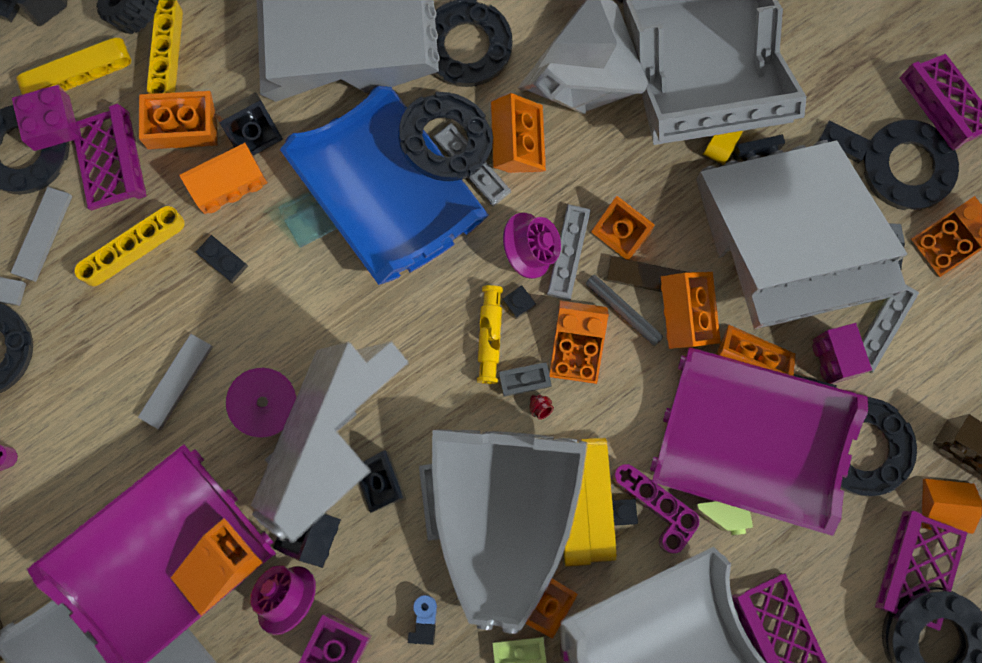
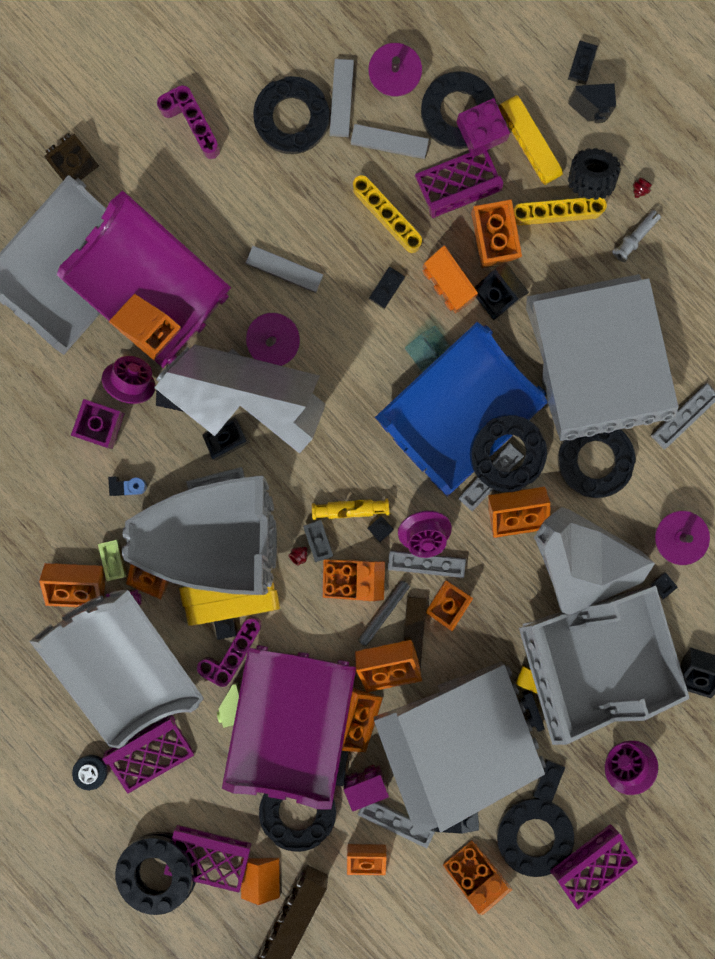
camera: 85 degrees right, 10 degrees up
(835, 43) = (631, 767): none -> magenta piece
(929, 366) = (366, 859): none -> orange slope

